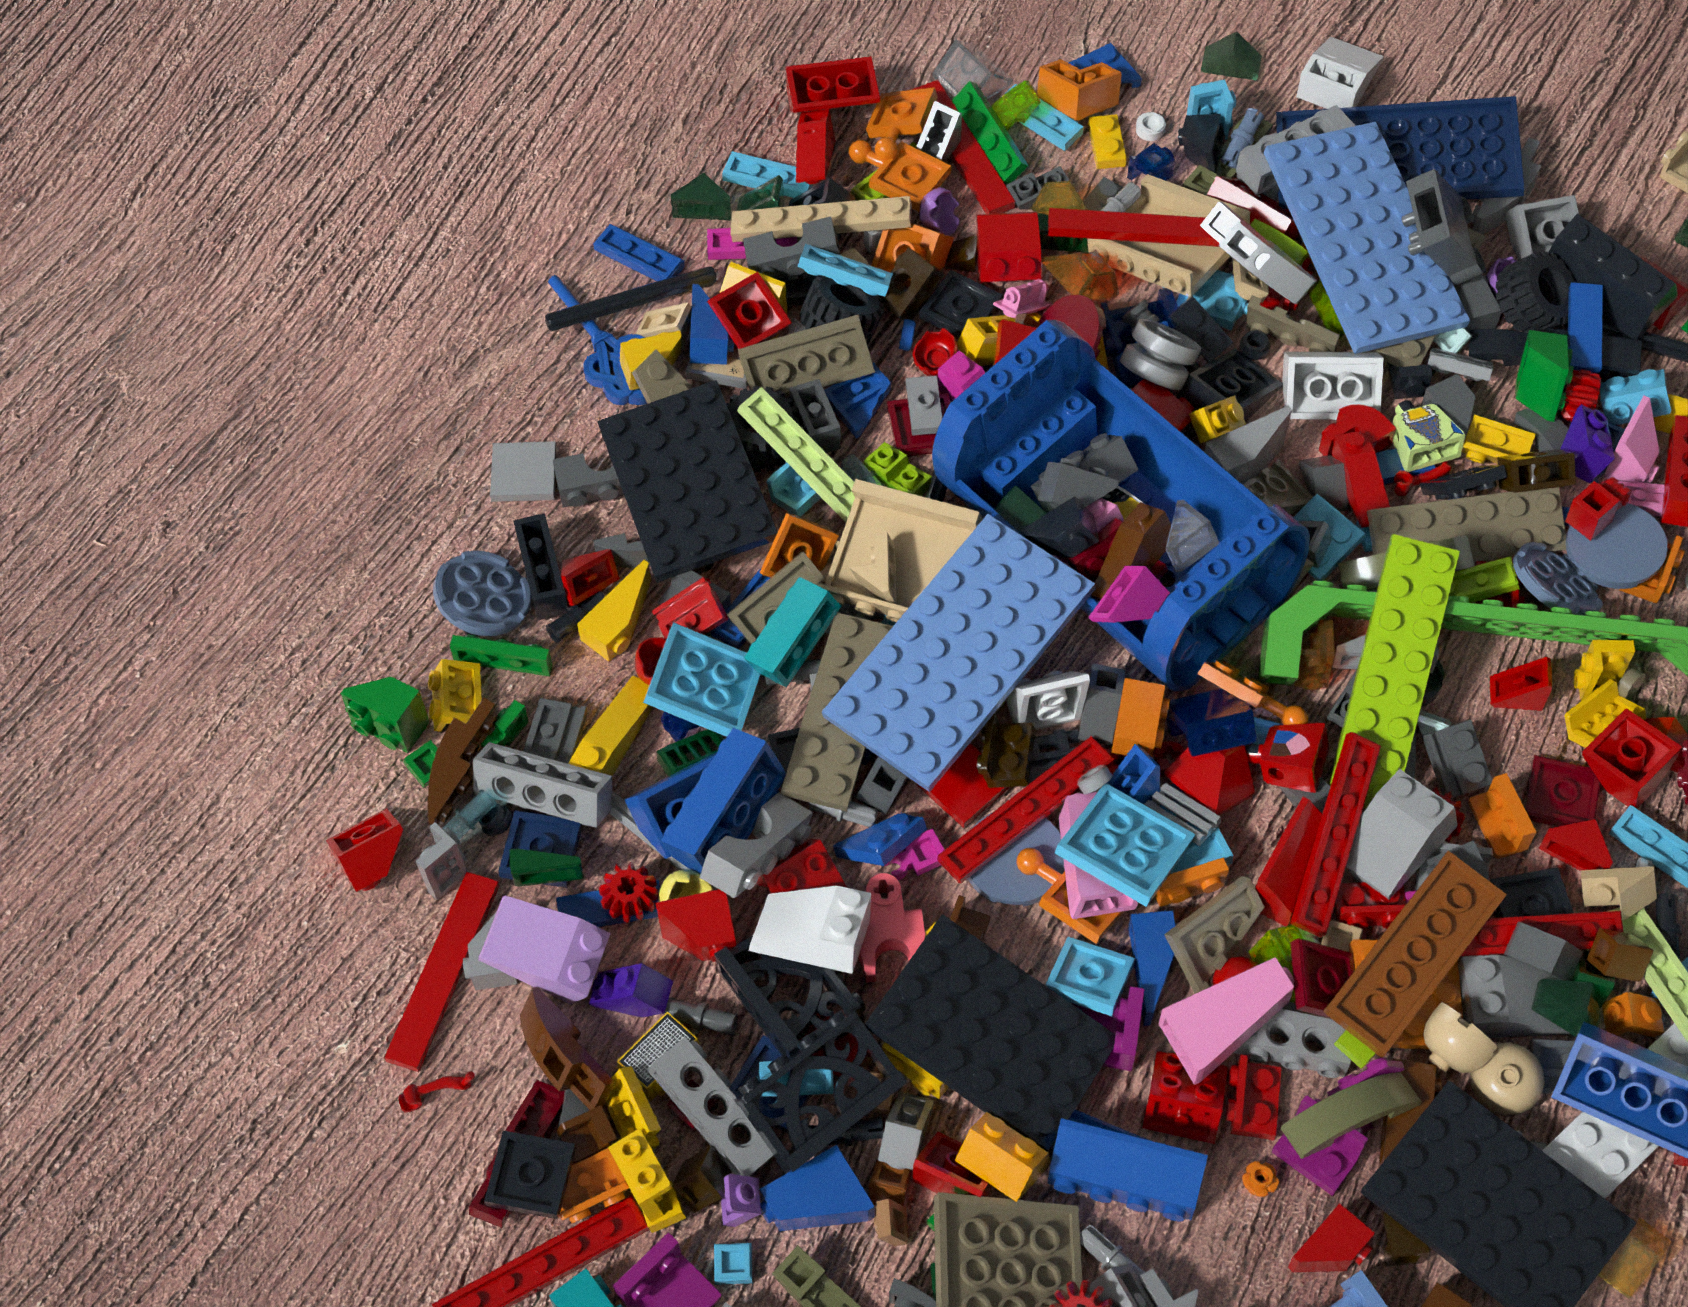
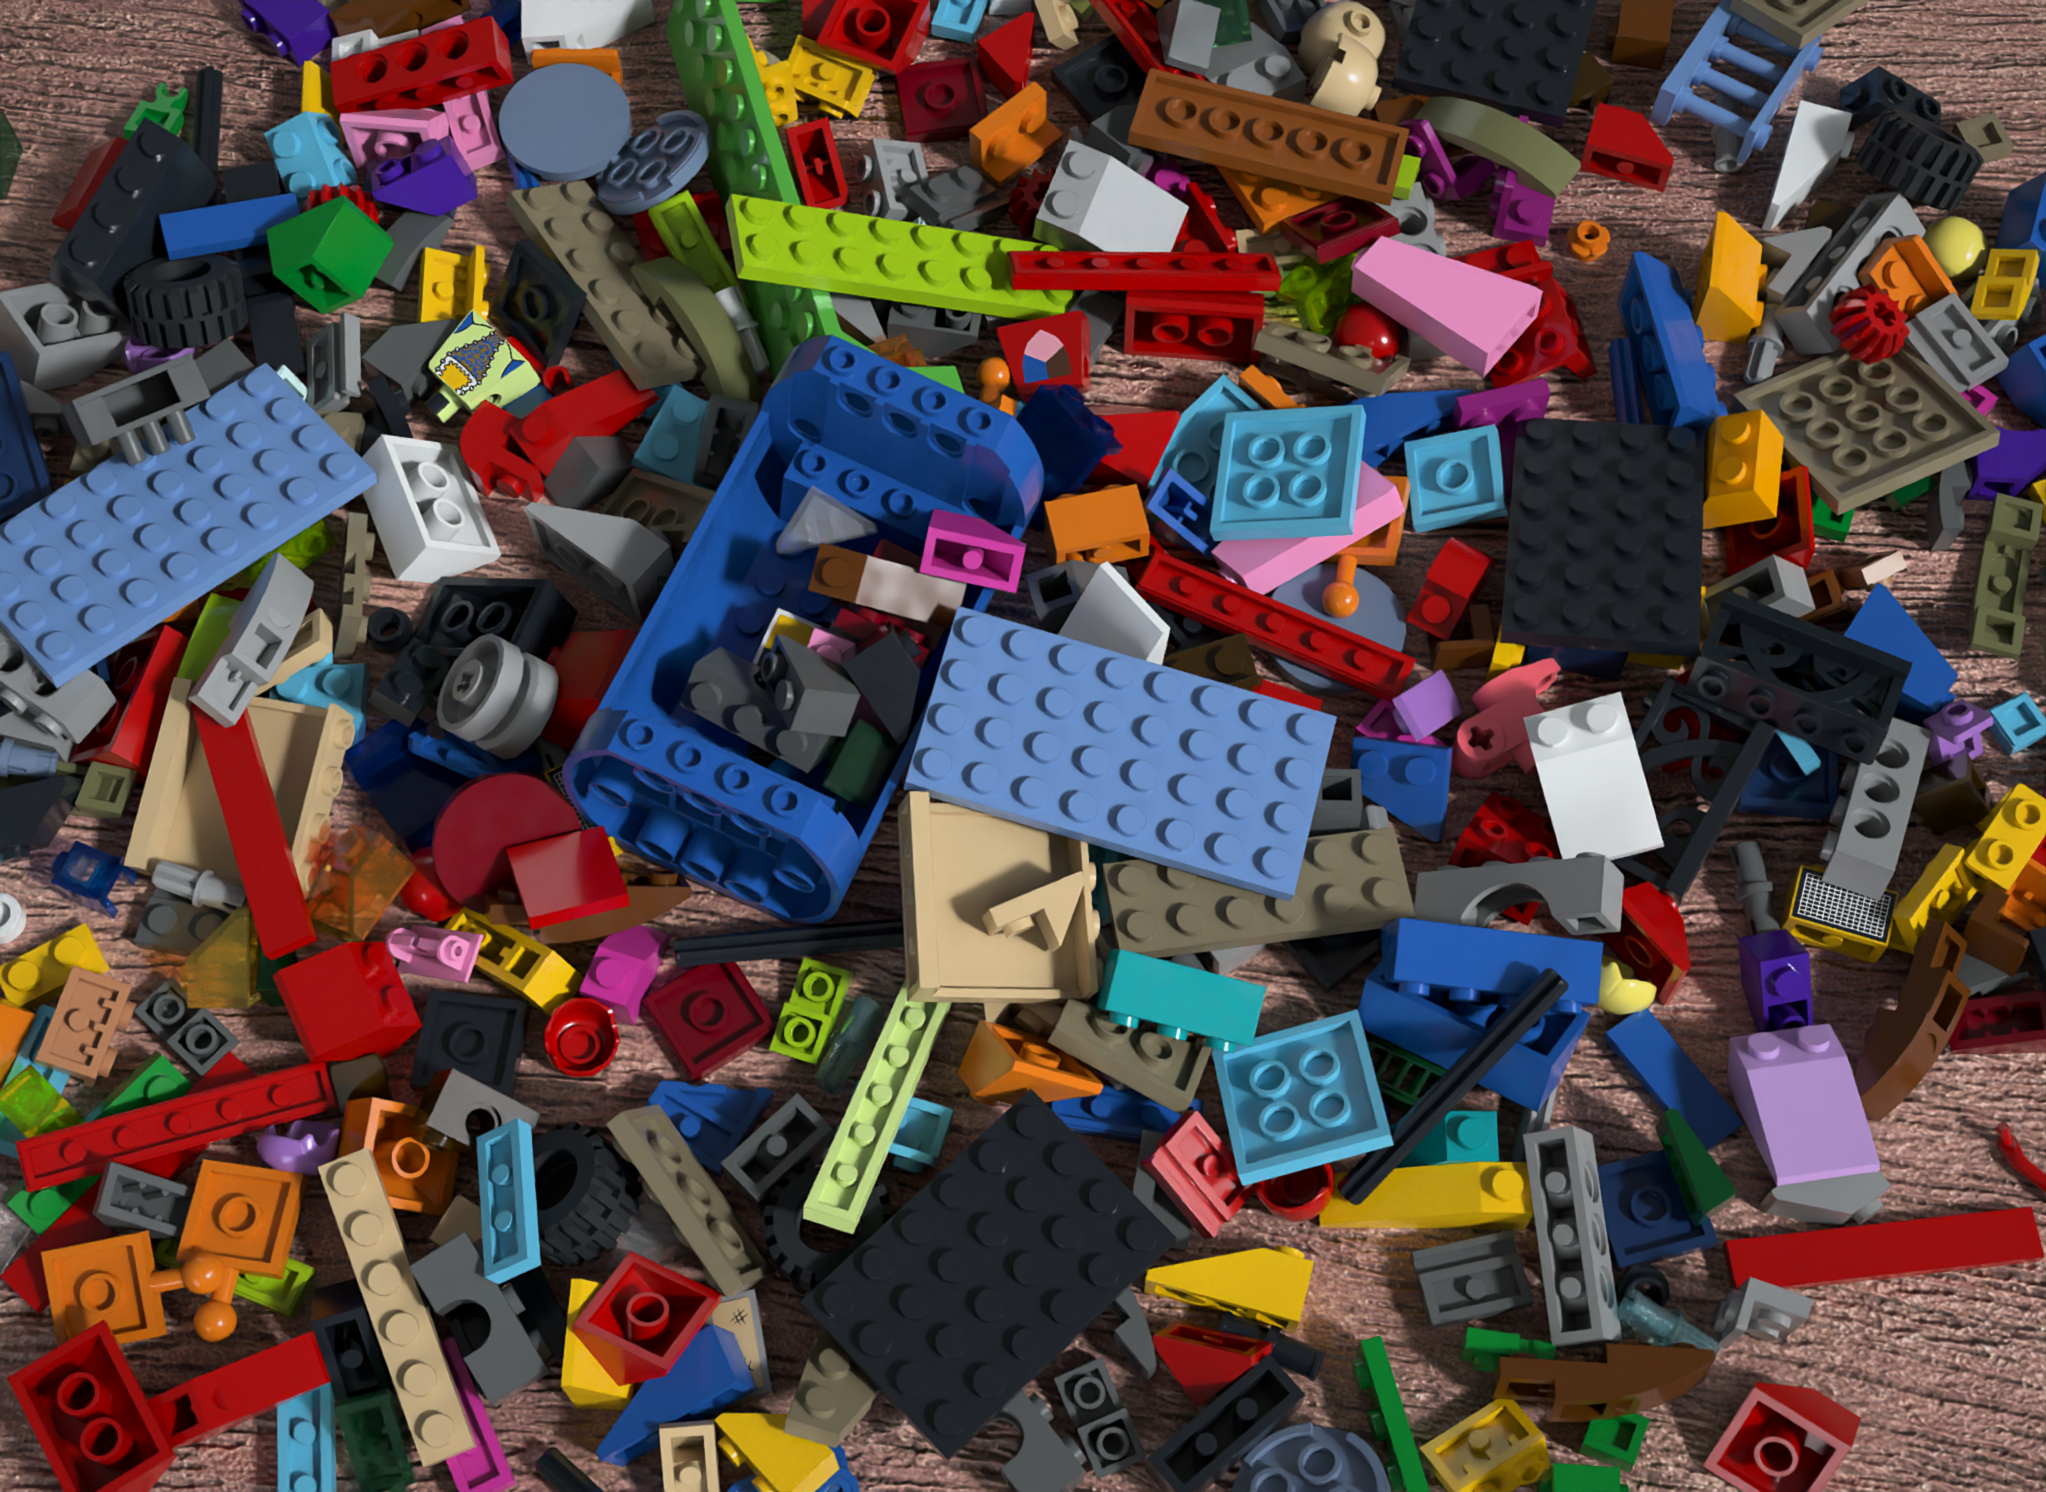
camera: 115 degrees left, 5 degrees up
(583, 523) = (1099, 1418): none -> dark grey slope
(615, 894) = (1668, 1063): red gear -> none
(636, 757) = (1457, 1139): none -> teal slope
(659, 749) = (1454, 1085): none -> black axle
(907, 335) = (558, 1099): blue tile -> none
(922, 870) = (1426, 706): none -> medium lavender slope
(923, 404) = (685, 1014): light grey plate -> none
(977, 156) = (176, 1125): none -> red tile
(1009, 932) = (1450, 586): none -> red brick
(1056, 138) = (85, 1026): none -> nougat bracket
(1094, 779) = (1207, 548): light grey tile -> none
(1138, 312) = (410, 779): dark grey wheel -> none
(1171, 1245) = (1729, 283): none -> light orange slope
(1186, 810) = (1203, 413): light grey tile -> none
(1217, 419) = (580, 596): yellow slope -> none
(1497, 733) = (885, 176): none -> light grey bracket
(1537, 470) = (498, 212): dark brown brick -> none
(1596, 506) = (541, 132): red brick -> none

